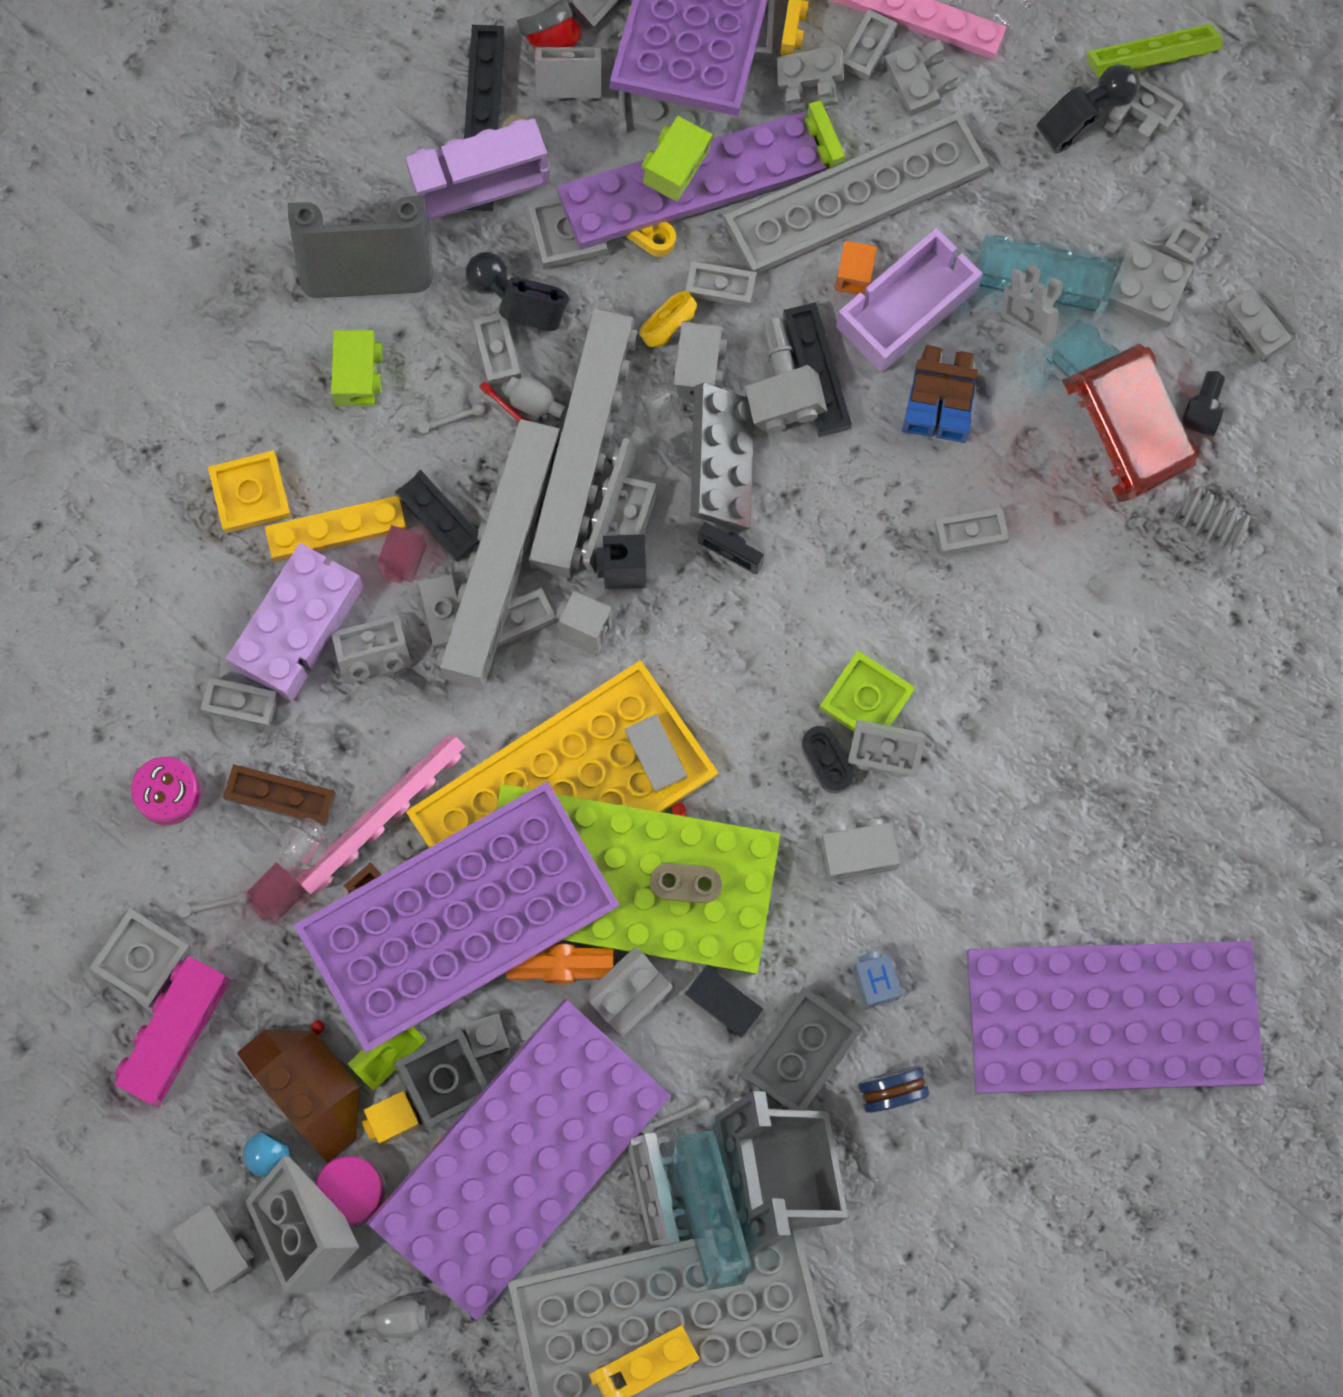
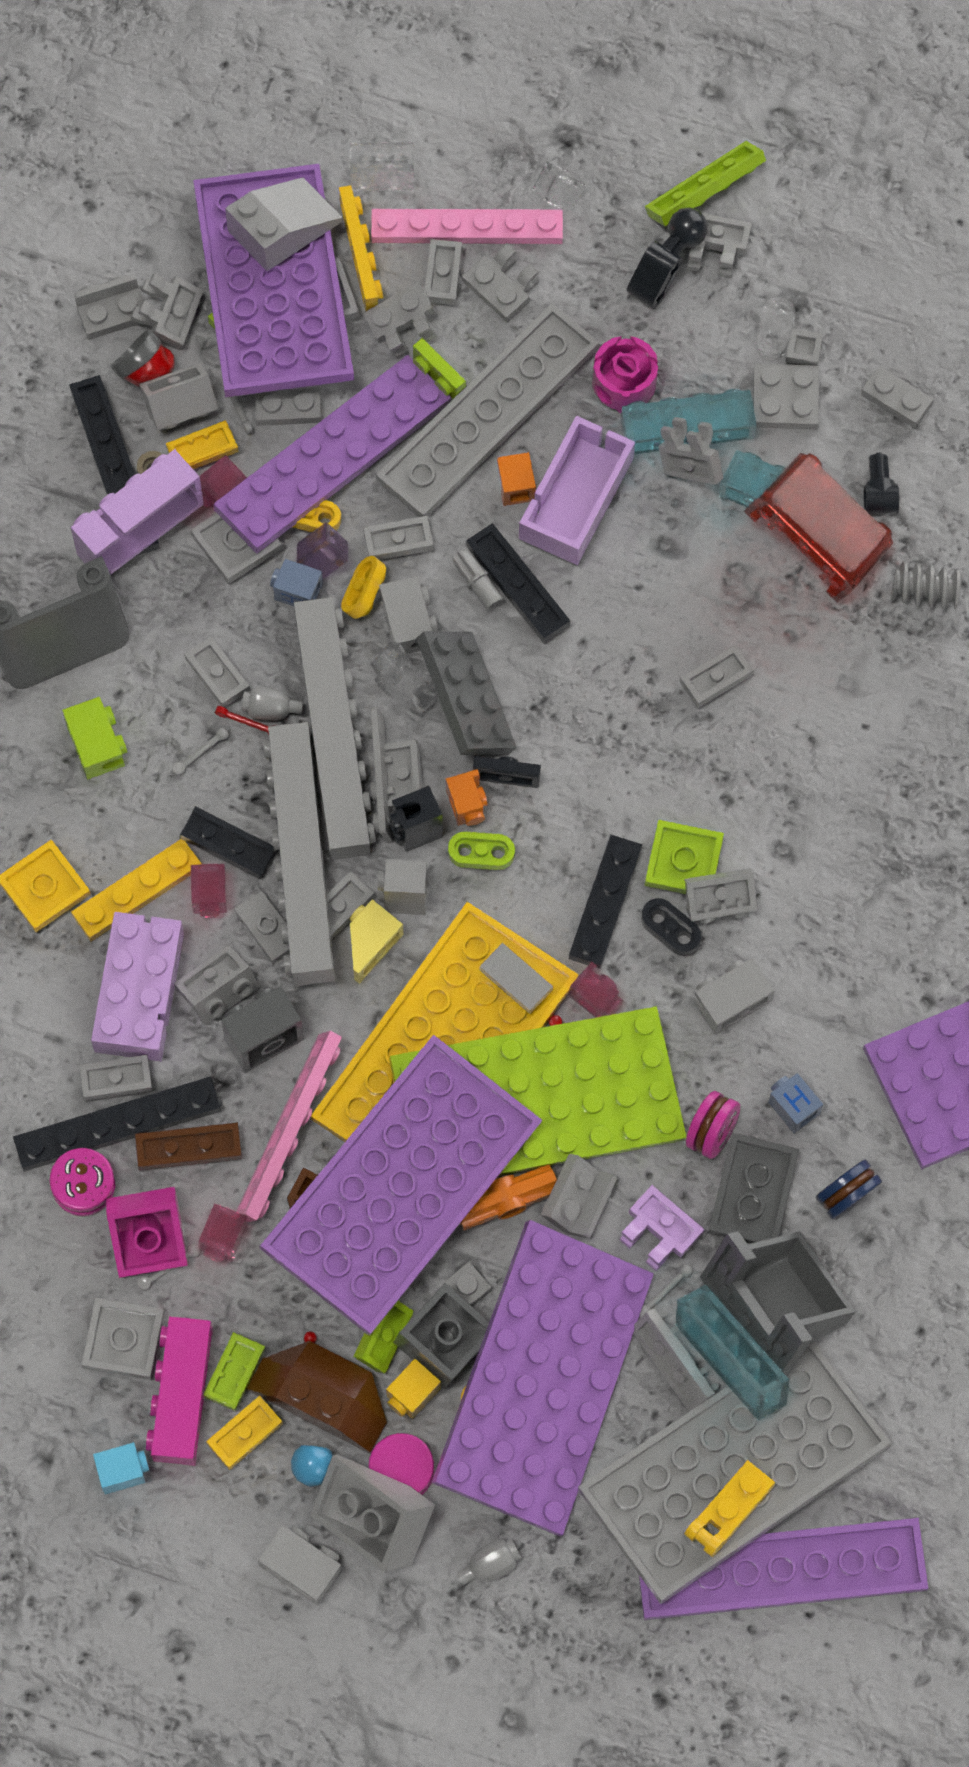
camera: 20 degrees left, 5 degrees down
(84, 1083) = (121, 1467): none -> medium azure brick
(204, 862) = (146, 1232): none -> dark pink slope
(215, 1096) = (244, 1432): none -> yellow plate
(224, 746) = (118, 1123): none -> black plate
(230, 1032) = (234, 1371): none -> lime plate
(302, 844) = (229, 1180): clear head -> none
(392, 709) = (262, 1028): none -> dark grey brick
(522, 299) = (223, 617): black beam -> none
(534, 660) = (372, 936): none -> light yellow slope
(572, 129) = (205, 445): none -> yellow plate
(572, 166) = (219, 480): none -> clear pink brick
(606, 291) = (295, 583): none -> sand blue brick
(643, 270) = (323, 550): none -> clear purple panel
(676, 158) = (315, 439): lime brick -> none
(677, 614) = (481, 848): none -> lime plate
(681, 559) = (466, 798): none -> orange brick
(686, 883) = (592, 1079): dark tan plate -> none
(703, 1049) = (664, 1221): none -> lavender plate
(723, 1001) = (666, 1174): black tile -> none
(728, 797) = (595, 992): none -> clear pink brick
(774, 710) = (605, 901): none -> black plate
(786, 399) = (502, 620): light grey brick -> none
(786, 972) = (713, 1124): none -> dark pink head
(942, 384) = (640, 554): hips -> none
(1002, 203) = (624, 372): none -> dark pink brick

